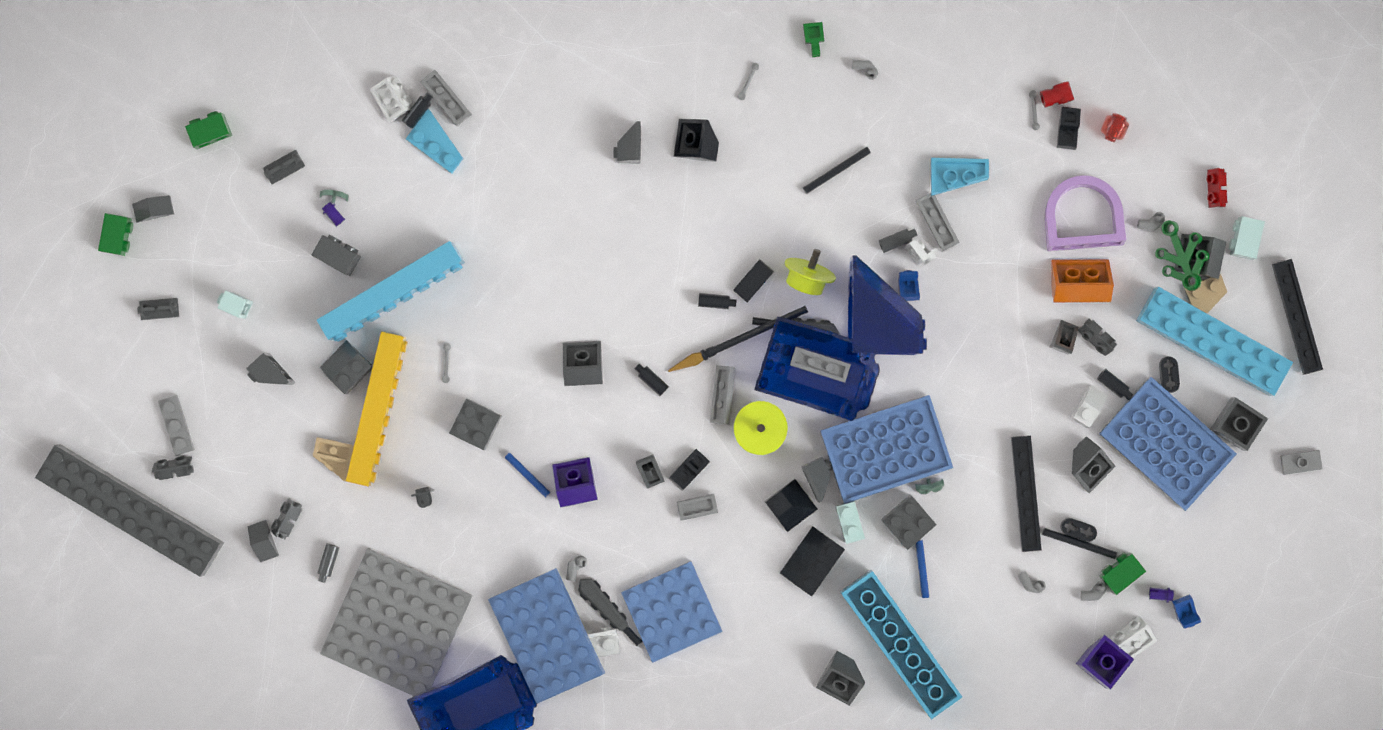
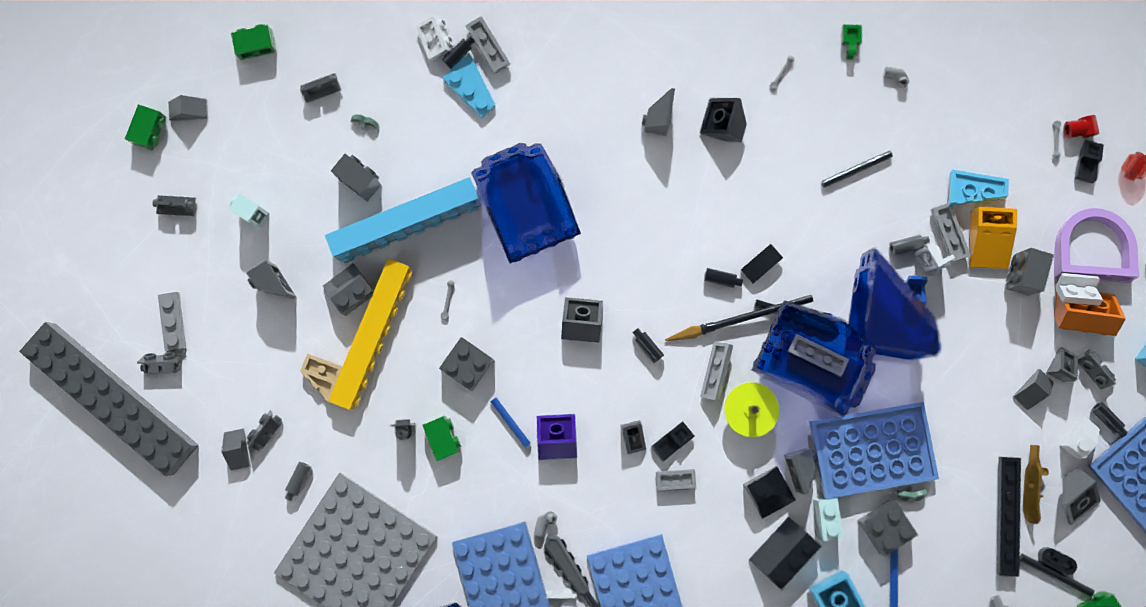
camera: 10 degrees right, 5 degrees down
(333, 214) = (360, 138): dark purple pin -> none
(462, 500) = (441, 437): none -> green brick
(506, 253) = (525, 200): none -> clear blue windscreen
(808, 275) = (818, 266): neon yellow piece -> none
(978, 221) = (992, 237): none -> light orange slope
(1016, 251) = (1029, 271): none -> dark grey brick
(1038, 366) = (1034, 390): none -> dark grey slope
(1046, 459) = (1032, 486): none -> pearl gold piece
(1069, 261) = (1078, 289): none -> white bracket

